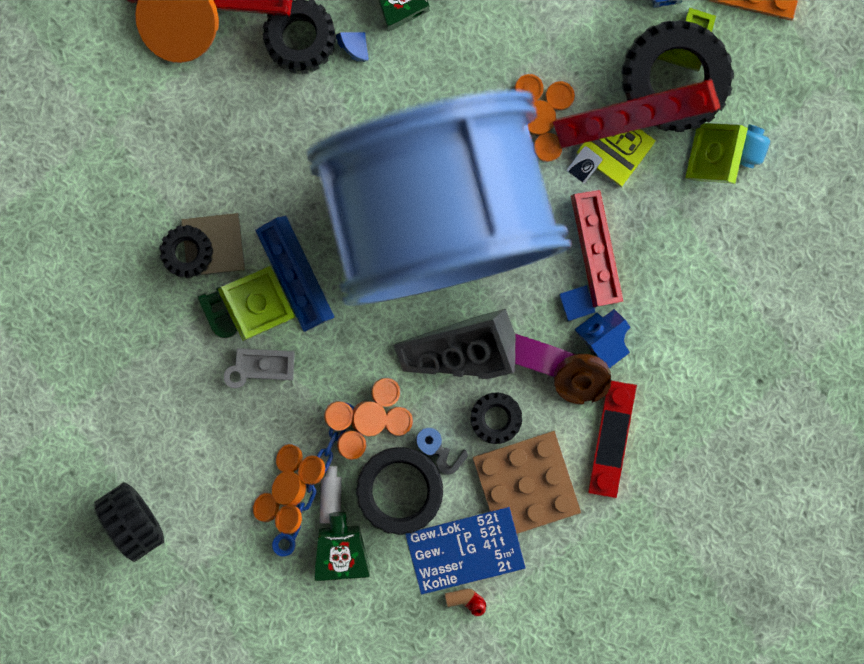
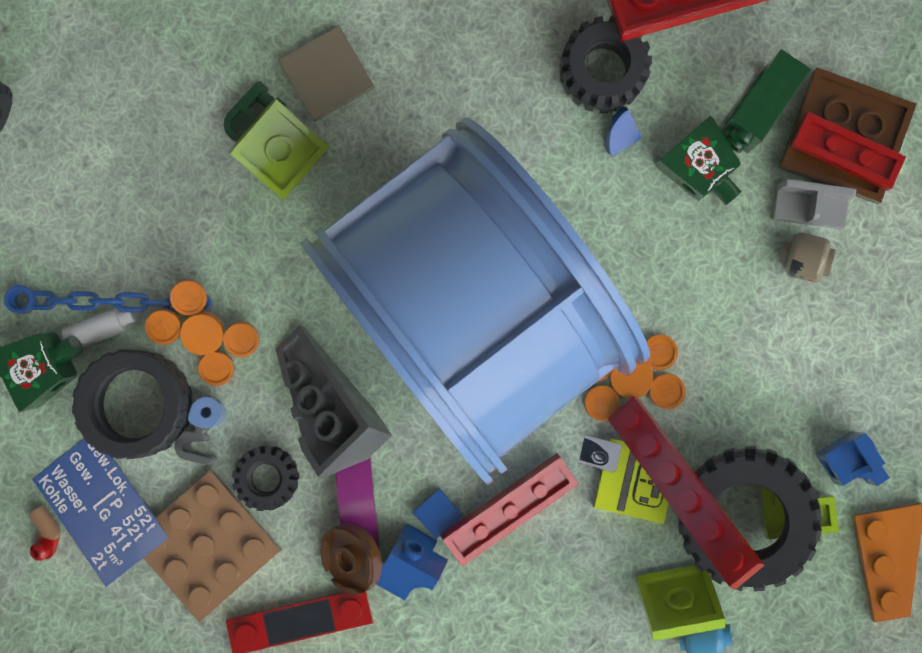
camera: 65 degrees right, 0 degrees up
(169, 246) = (302, 24): black tyre -> none
(261, 365) = (212, 186): light grey hinge -> none
(289, 489) = (83, 277): orange piece -> none
(294, 273) = (334, 178): blue slope -> none

